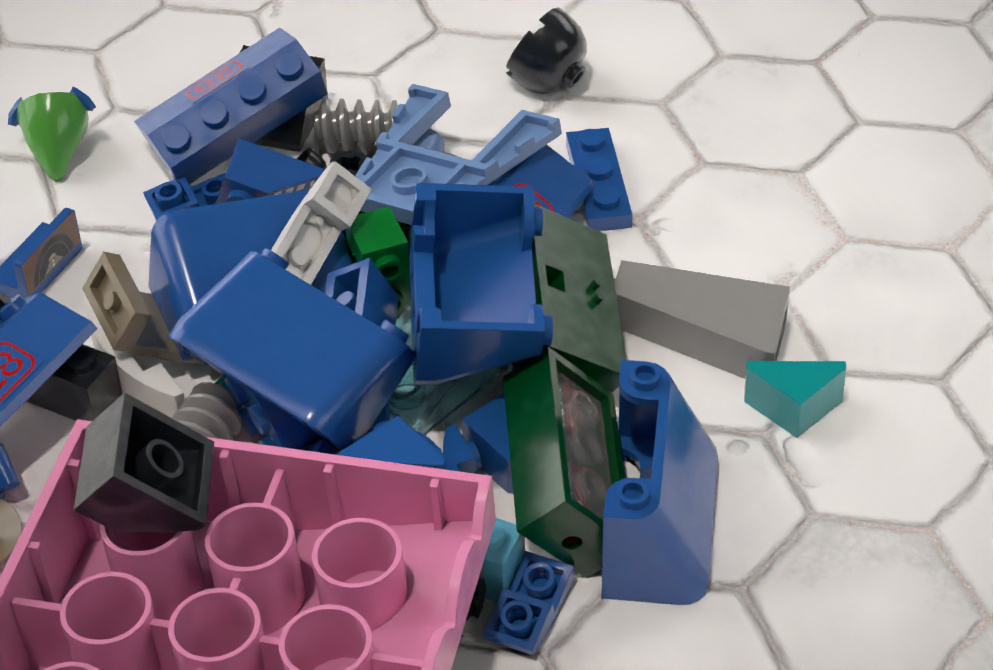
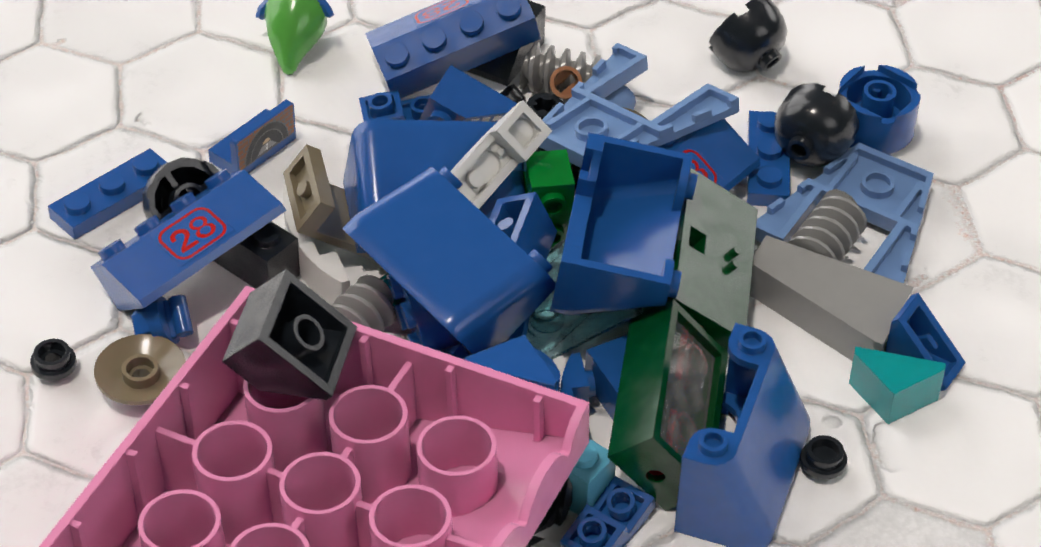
camera: 10 degrees right, 0 degrees up
(359, 129) = (559, 77): none -> nougat hinge
(642, 134) = (815, 125): none -> black cylinder
(686, 237) = (832, 226): none -> light grey piece
(700, 108) = (884, 105): none -> blue brick
(713, 191) = (884, 188): none -> medium blue wing
(741, 487) = (823, 457): none -> black plate
(810, 337) = (919, 335): none -> blue slope

